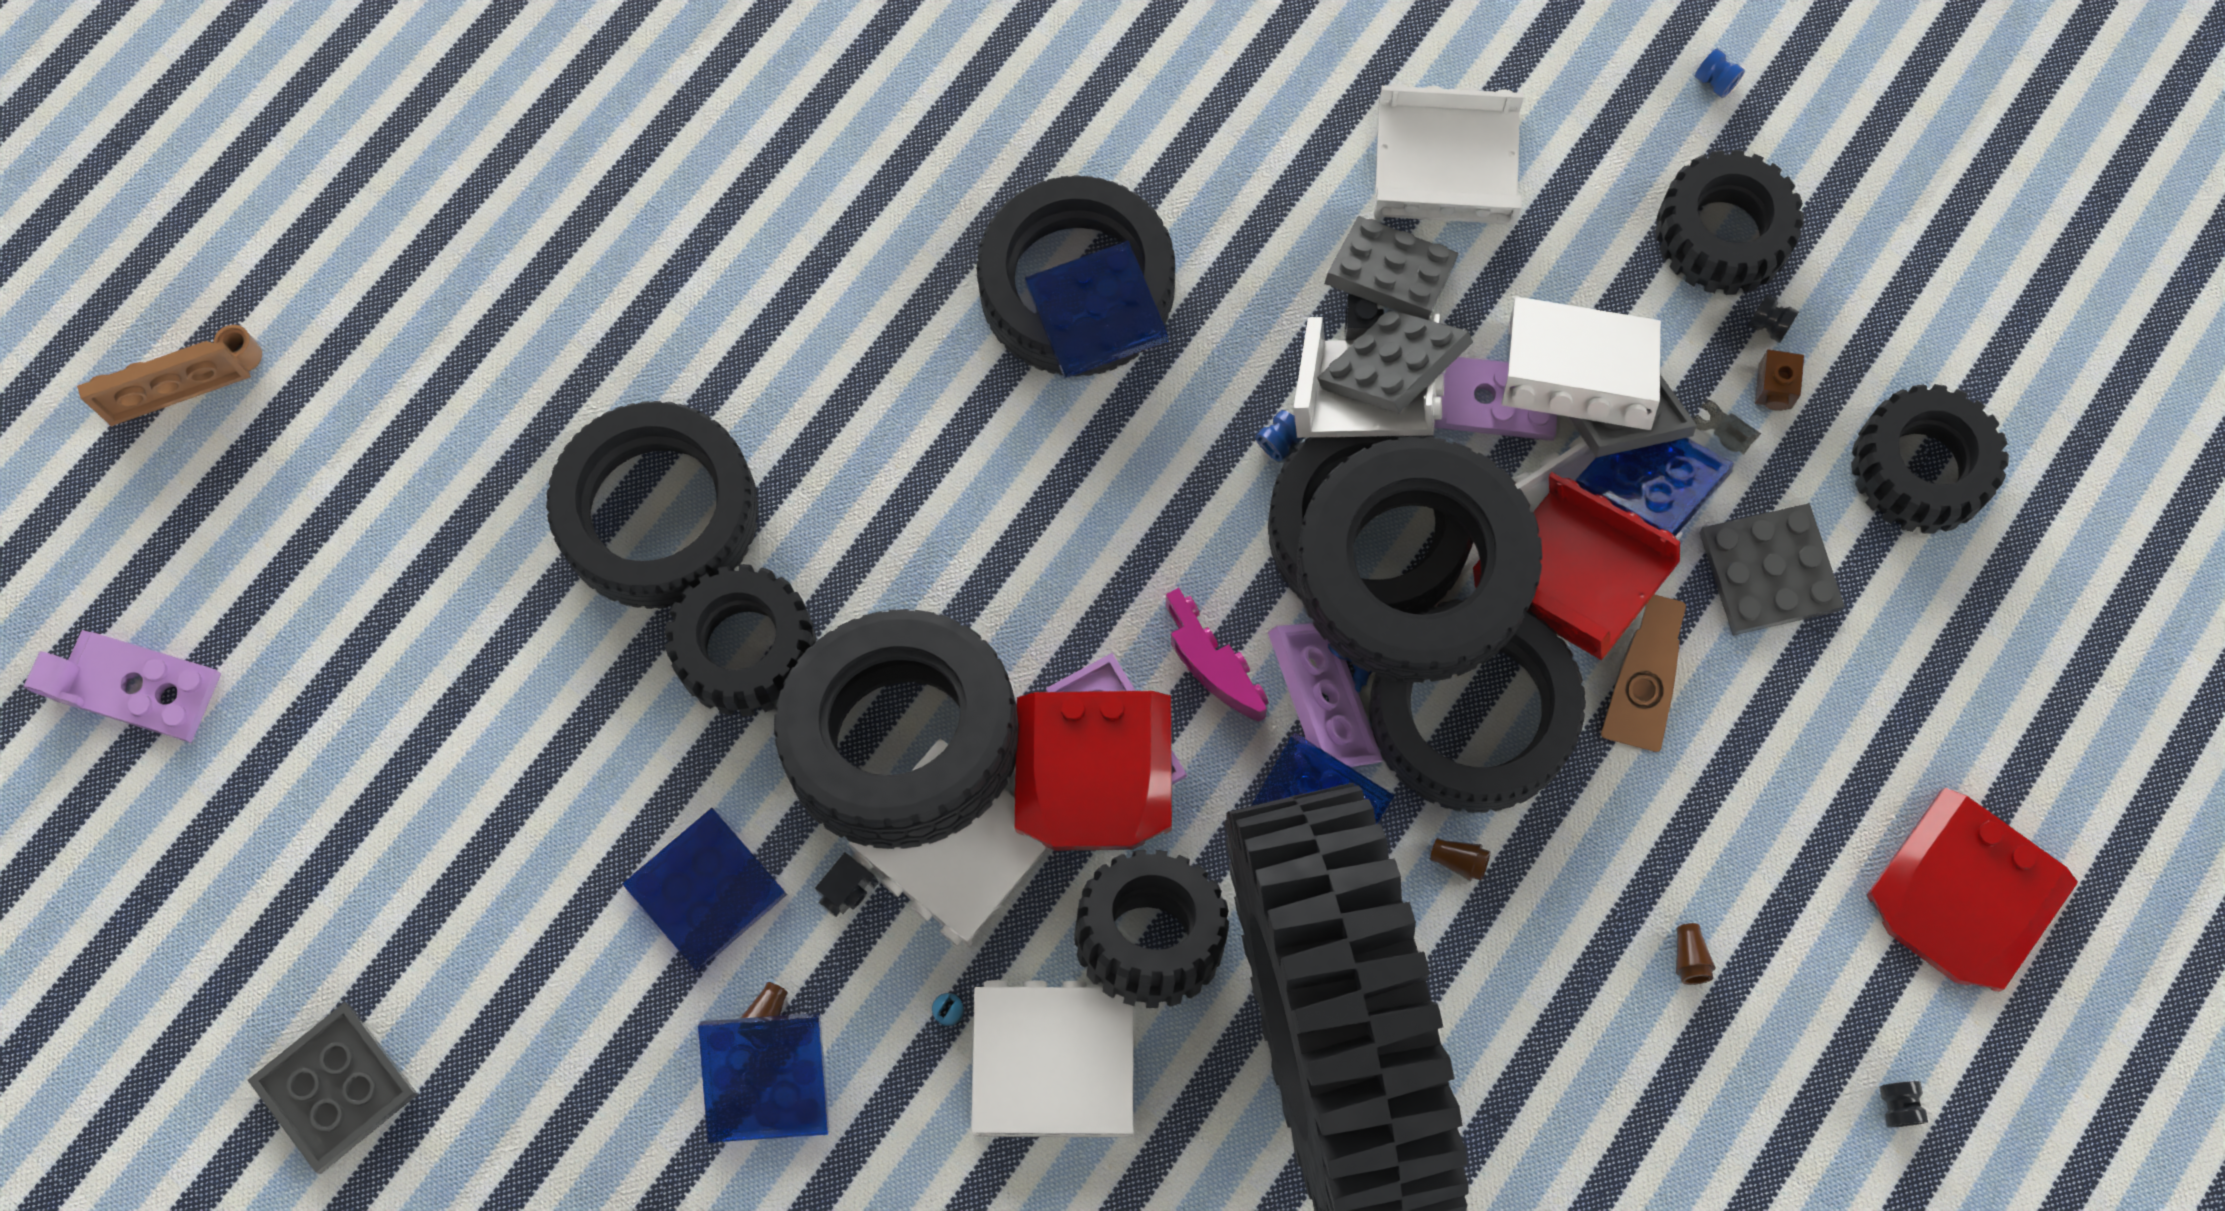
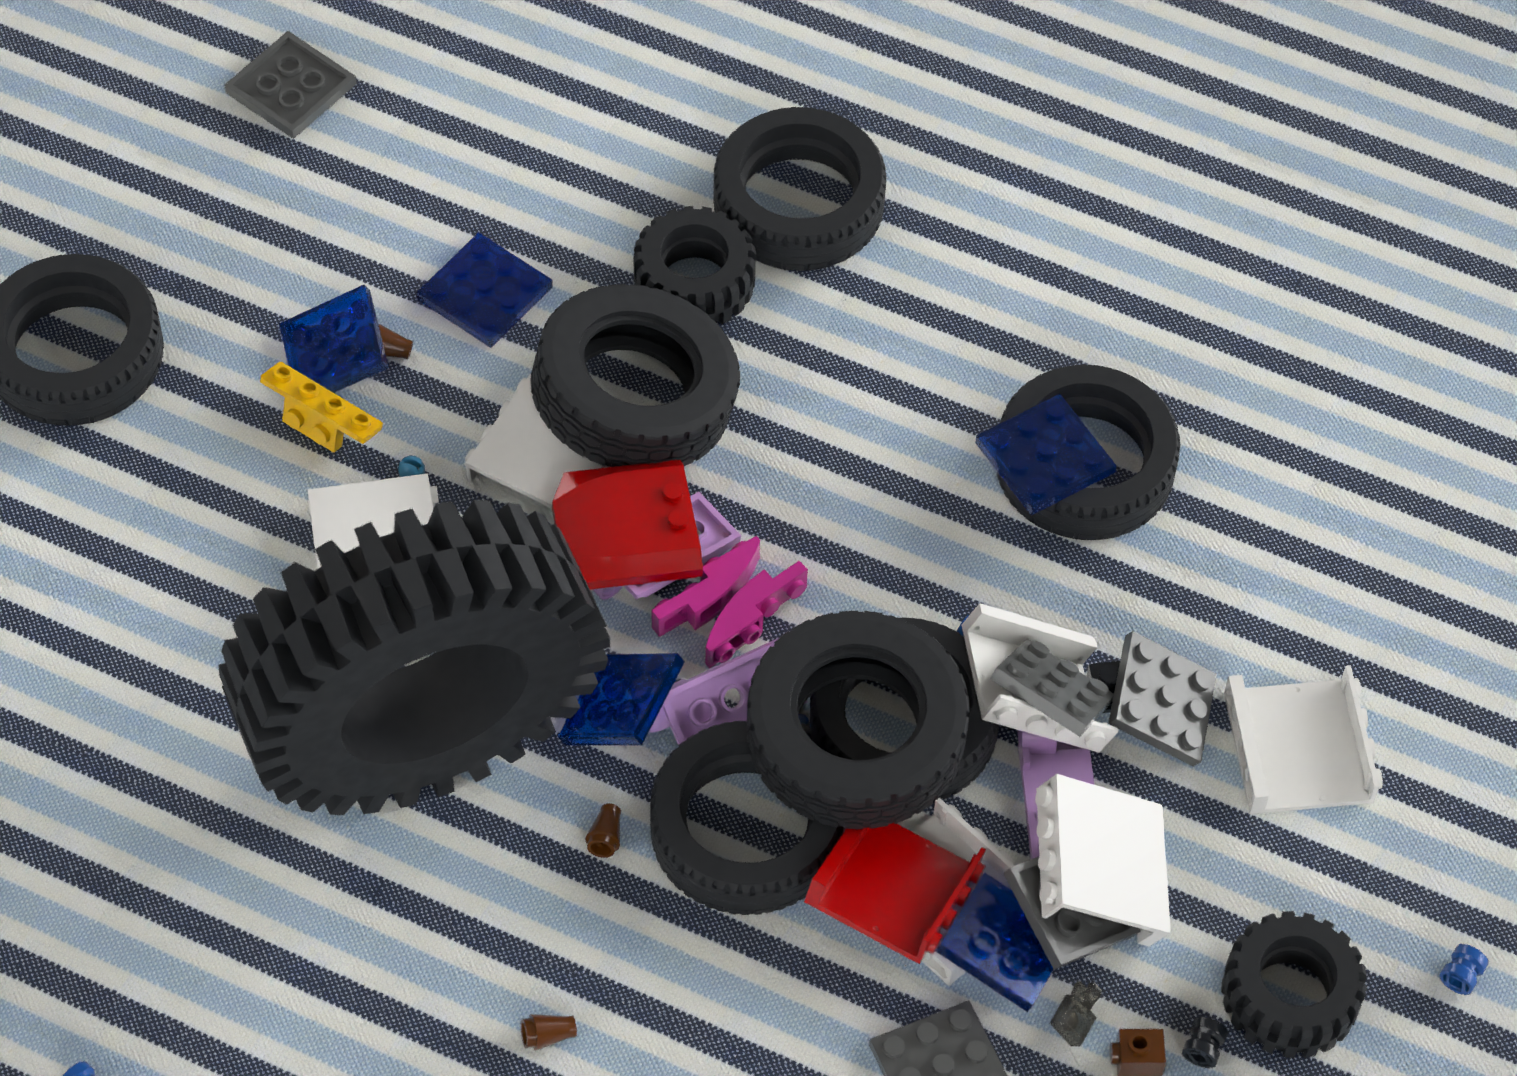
camera: 75 degrees right, 15 degrees down
(844, 885) = (500, 376): black brick -> none
(852, 1106) = (318, 410): none -> yellow bracket
(1188, 704) = (705, 600): none -> dark pink slope
(1646, 678) = (807, 967): medium nougat piece -> none

